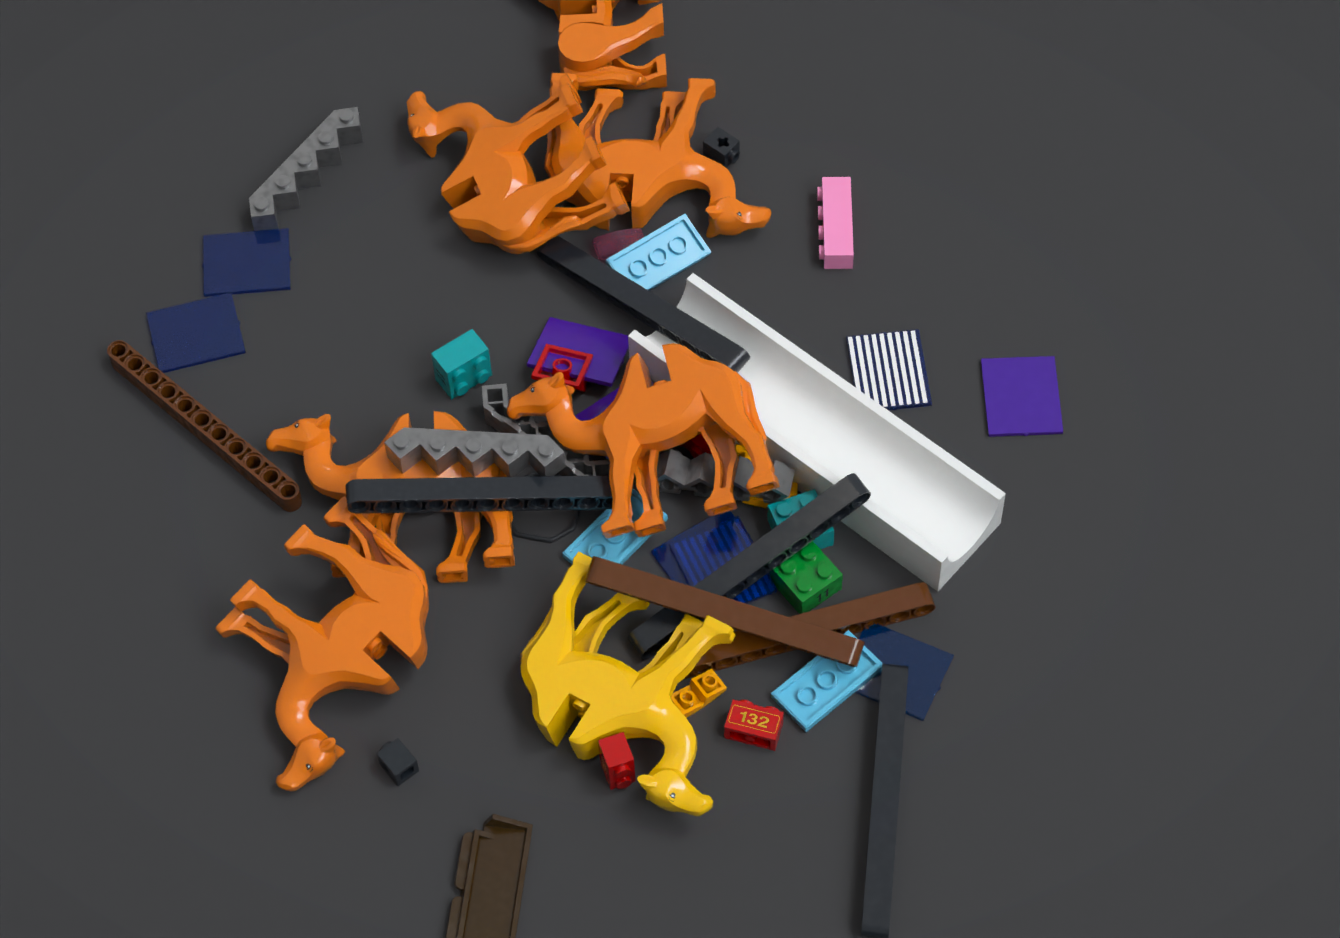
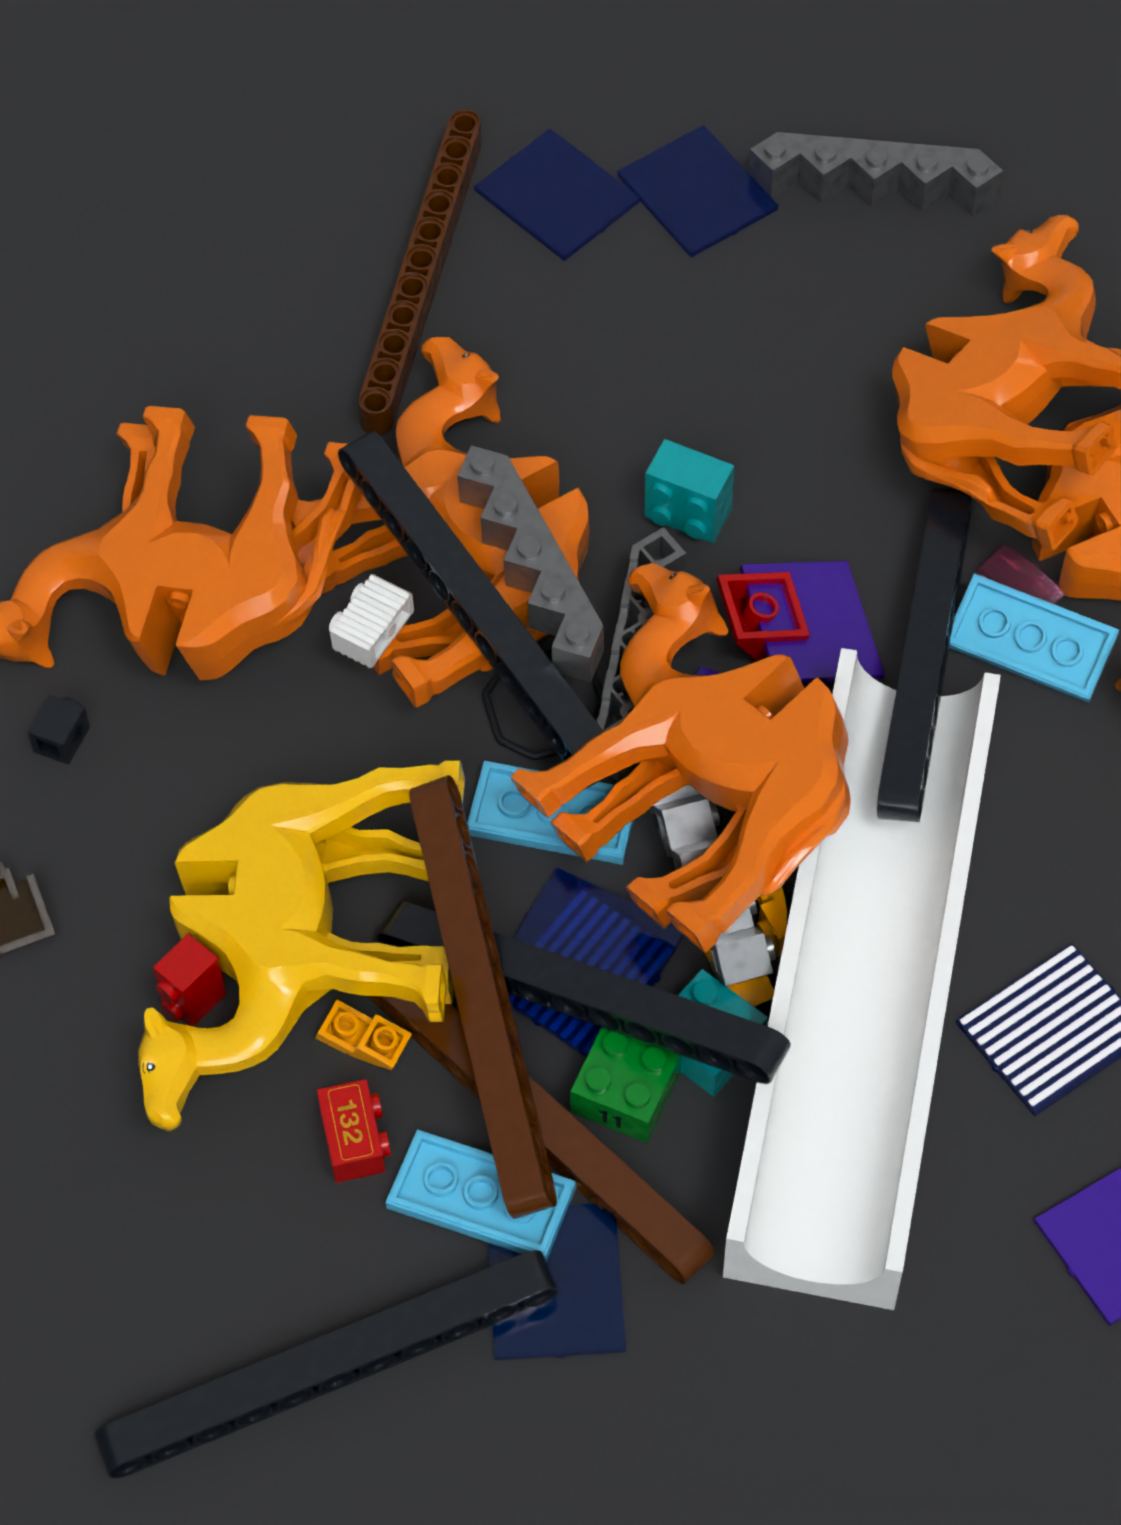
camera: 60 degrees right, 0 degrees up
(445, 558) = (370, 620): none -> white brick

